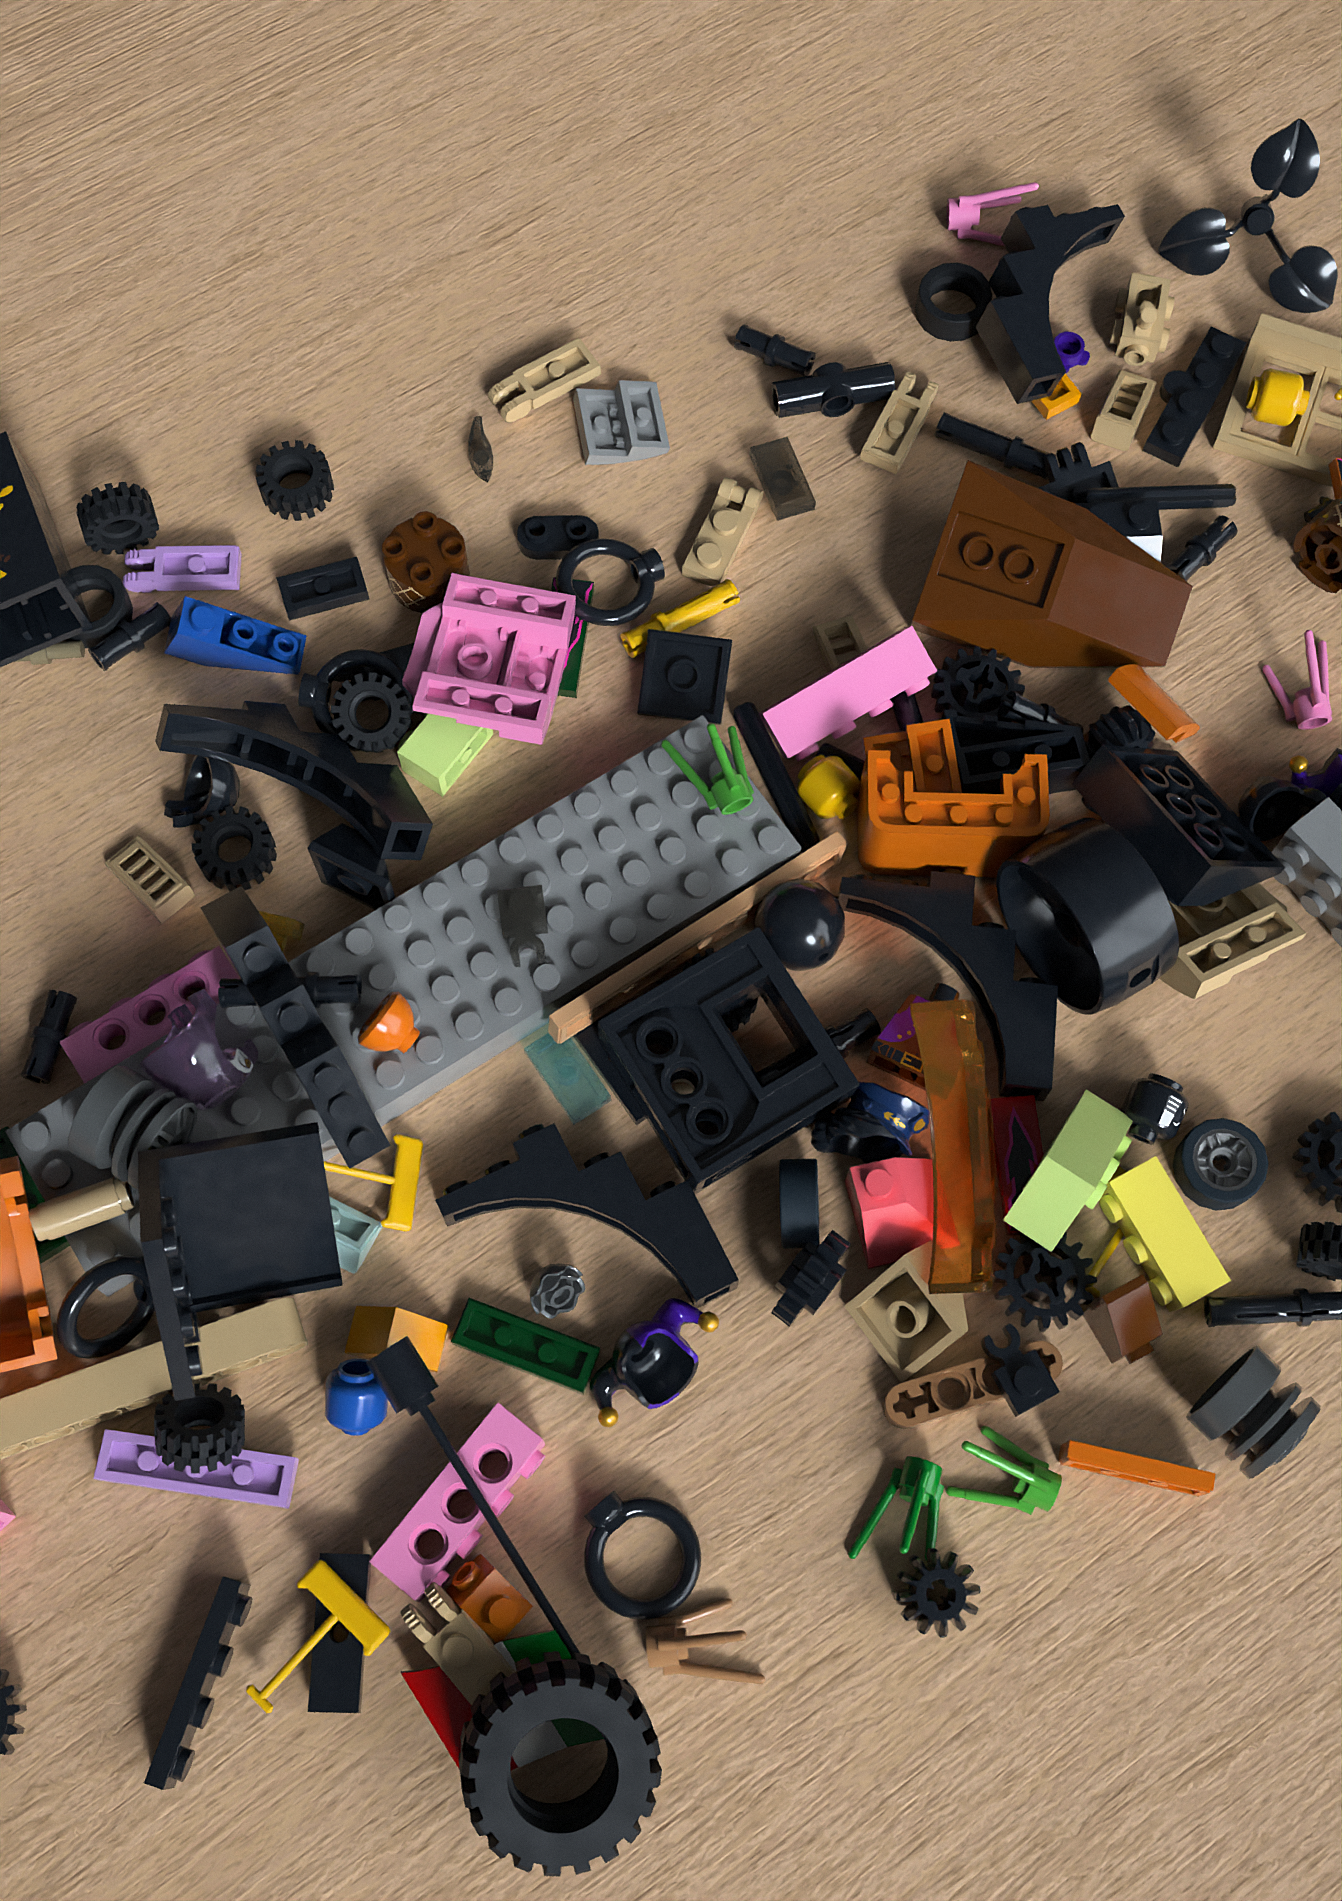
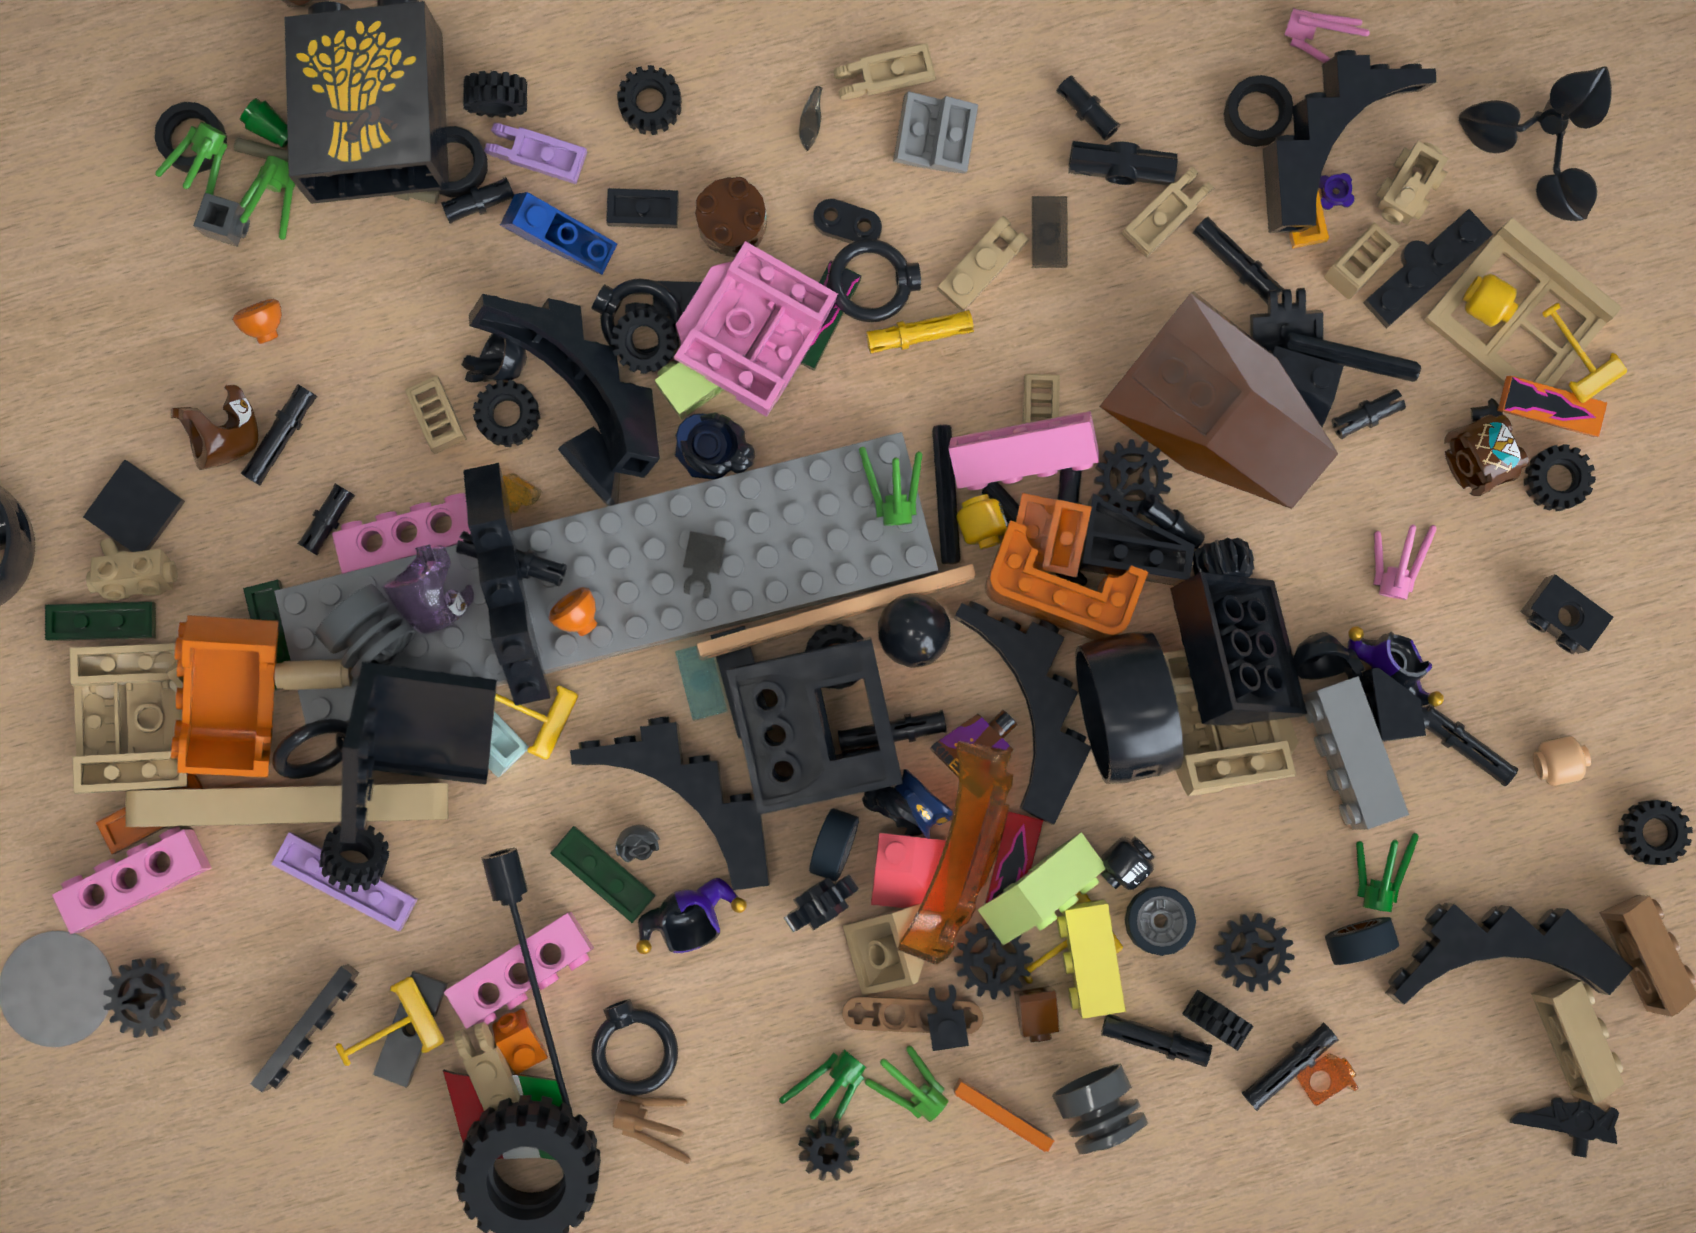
camera: 20 degrees right, 15 degrees up
(354, 1398) = (466, 872): blue head -> none
(381, 1327) = (506, 831): light orange slope -> none
(488, 803) = (712, 446): none -> piece
(684, 676) = (904, 386): black tile -> none
(1153, 703) = (1266, 540): orange slope -> none

